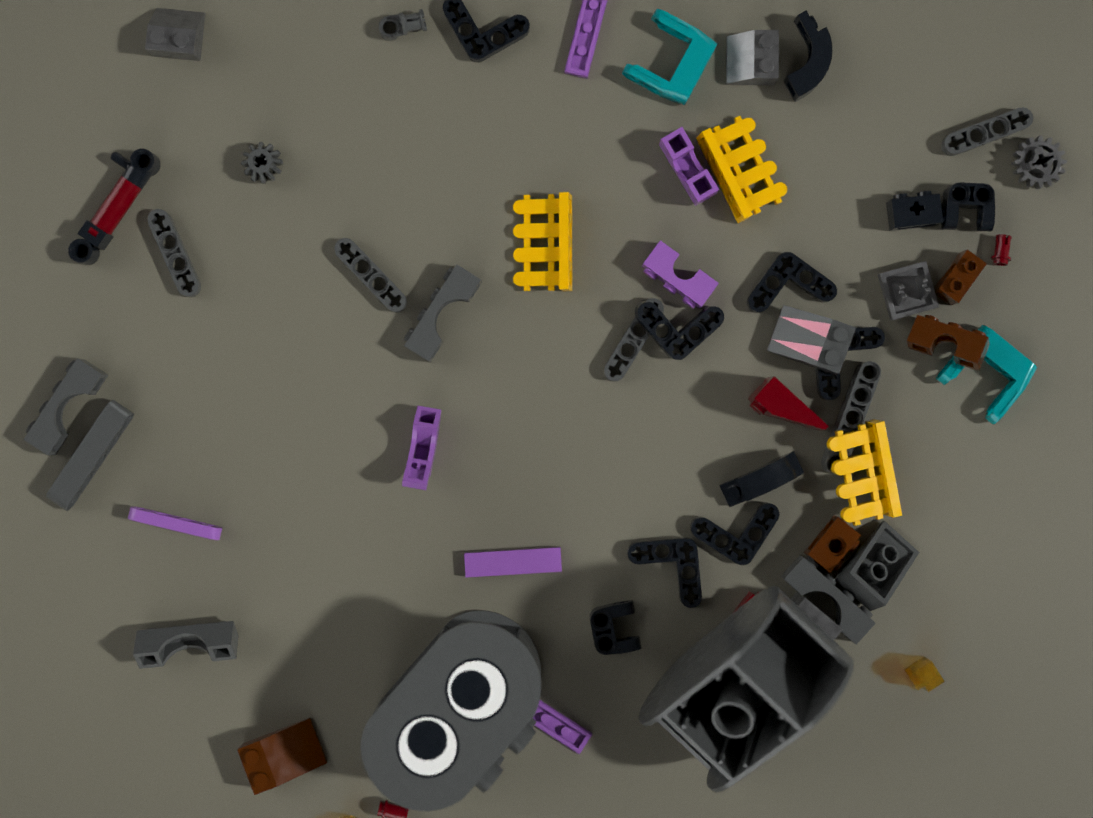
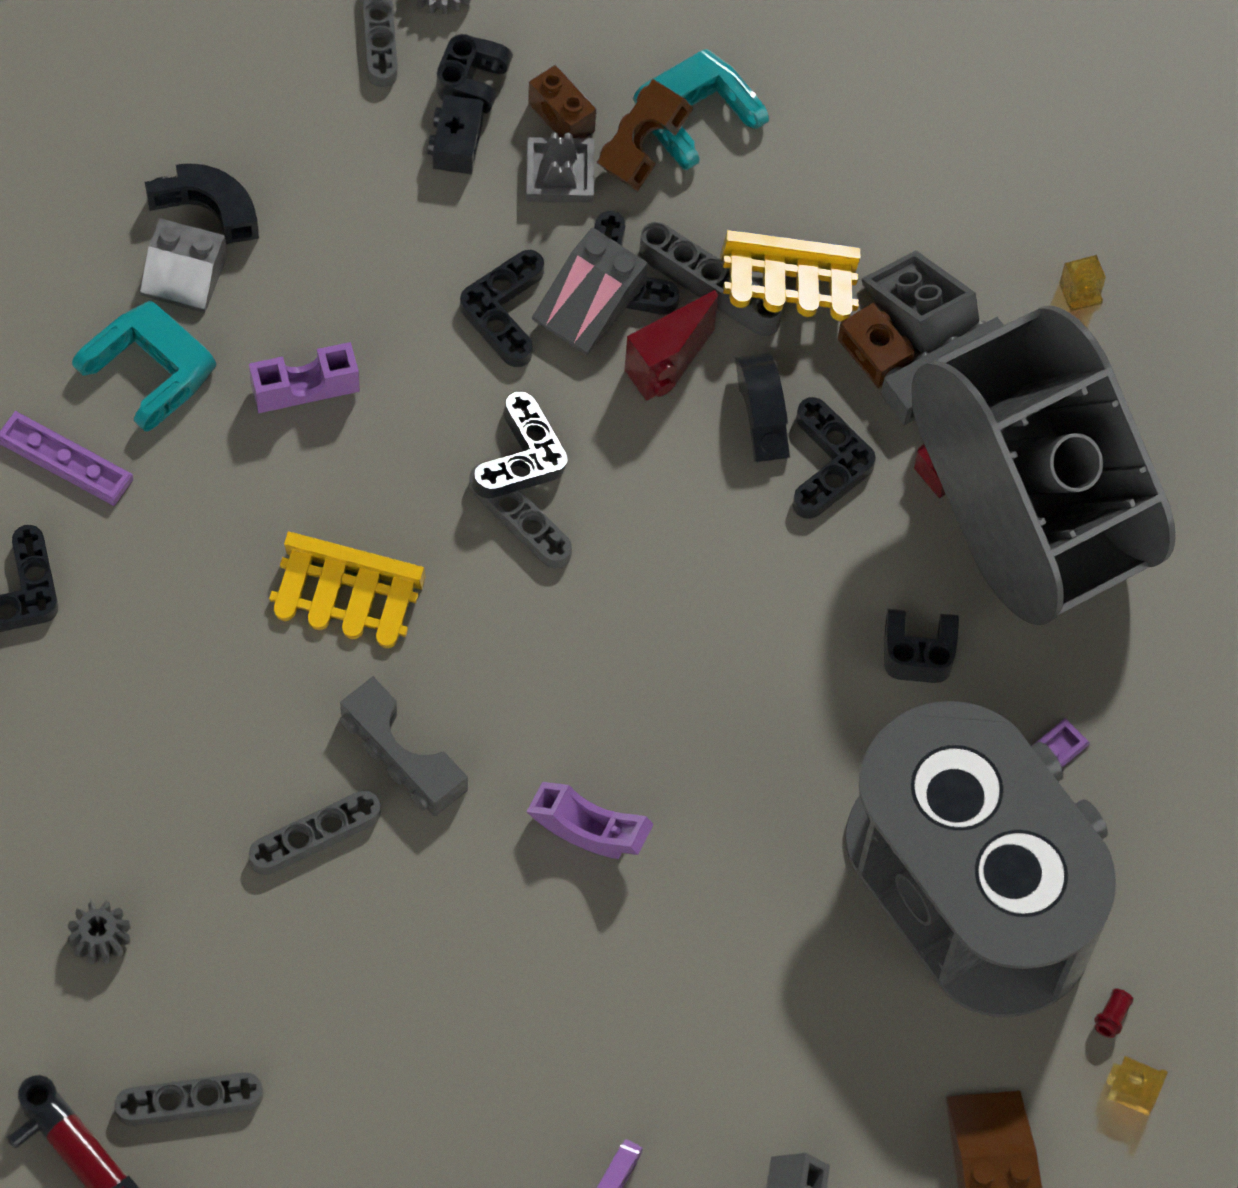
camera: 75 degrees left, 25 degrees down
(513, 562) = (789, 755): medium lavender tile -> none
(660, 266) = (429, 450): medium lavender arch -> none
(673, 555) = (838, 541): black beam -> none
(732, 185) = (299, 342): yellow fence -> none
(1002, 250) = (541, 51): dark red pin -> none

